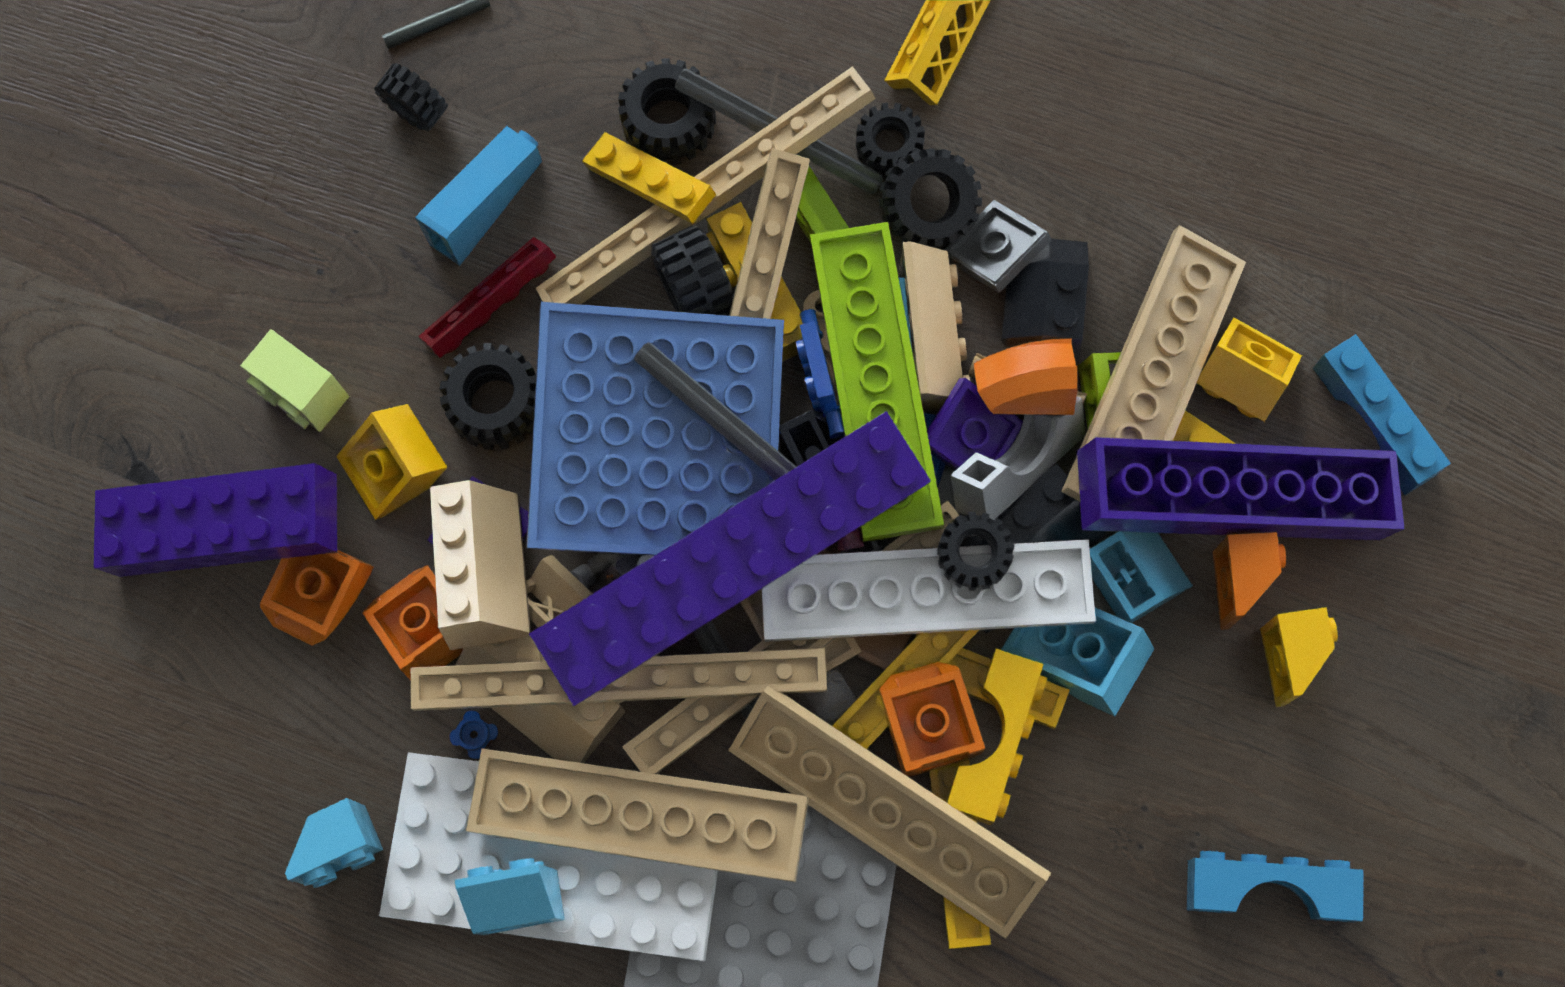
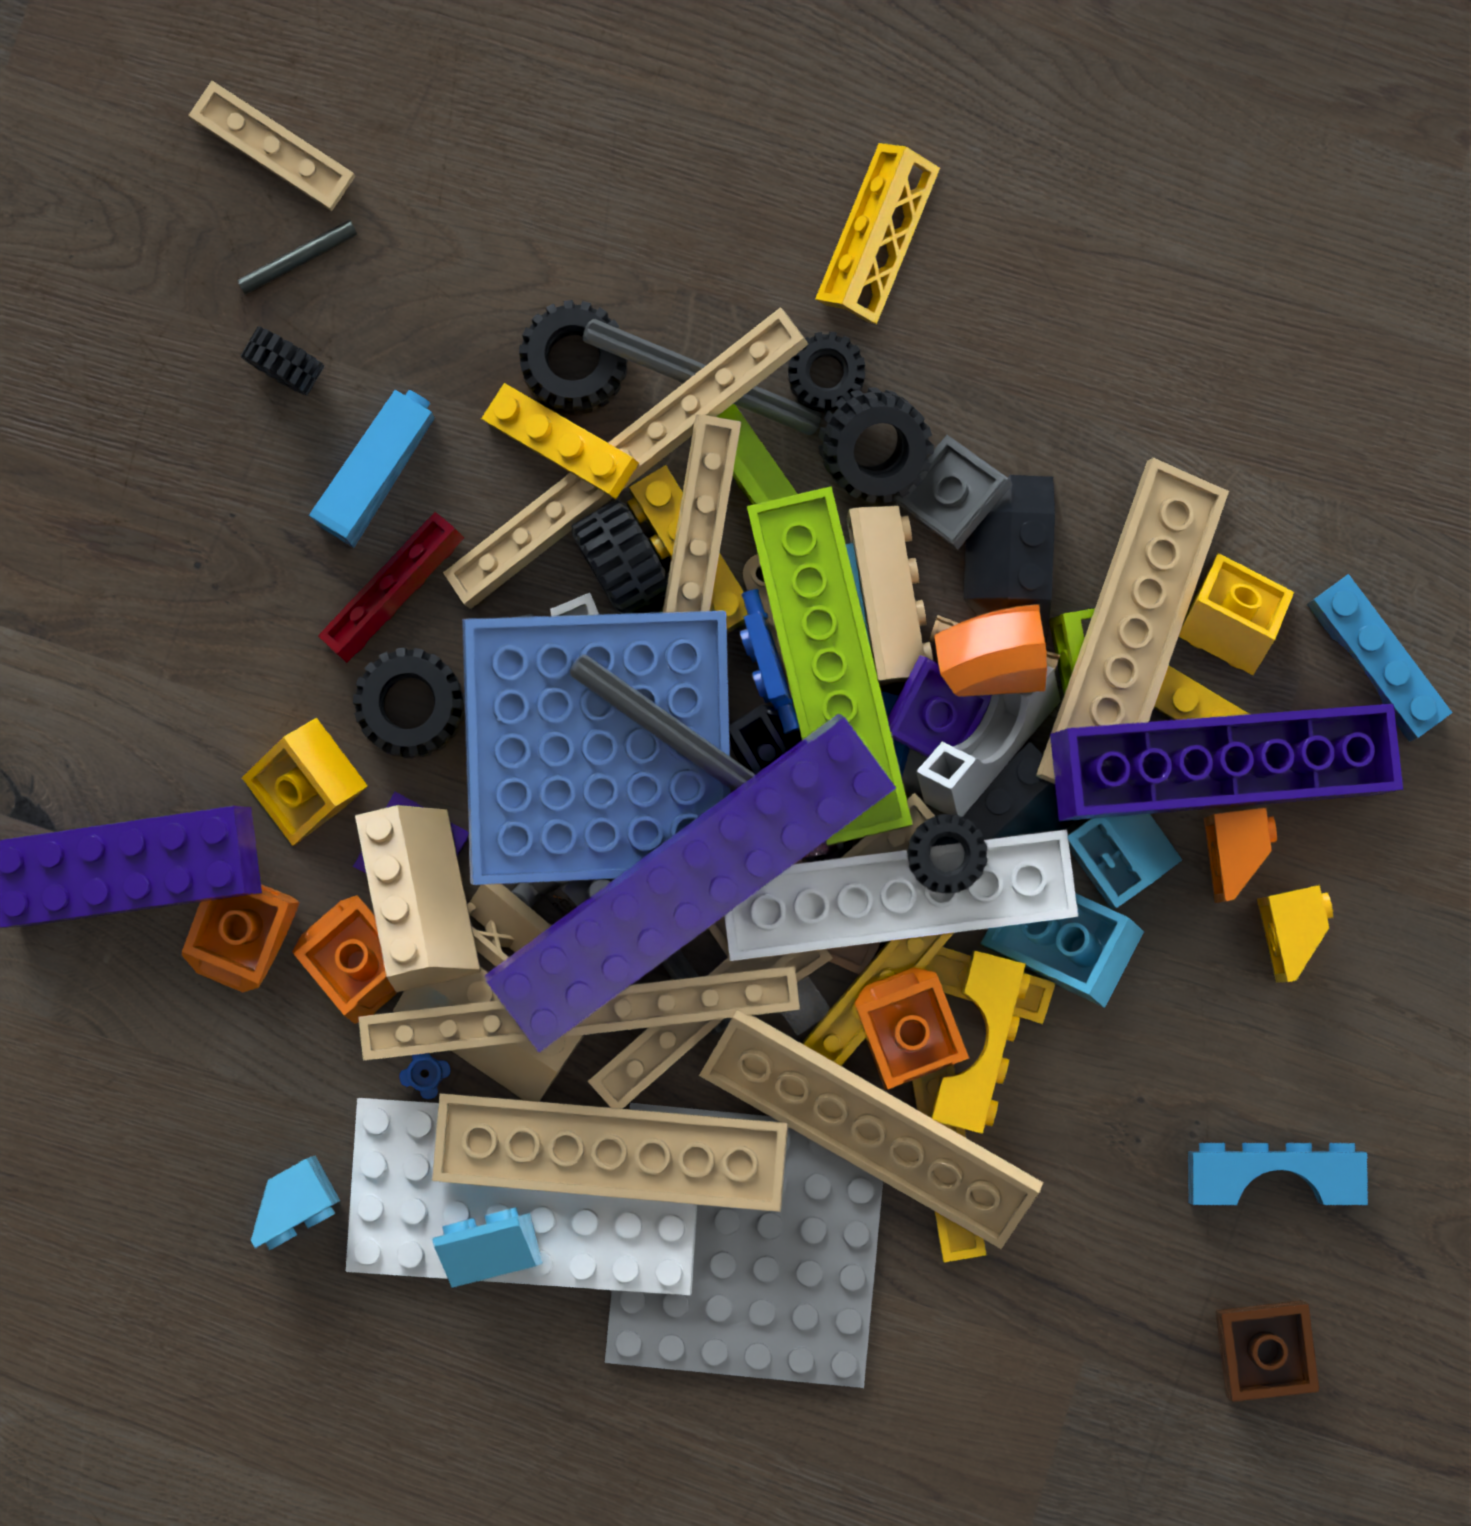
camera: 10 degrees left, 10 degrees up
(293, 382) = (184, 698): yellowish green brick -> none

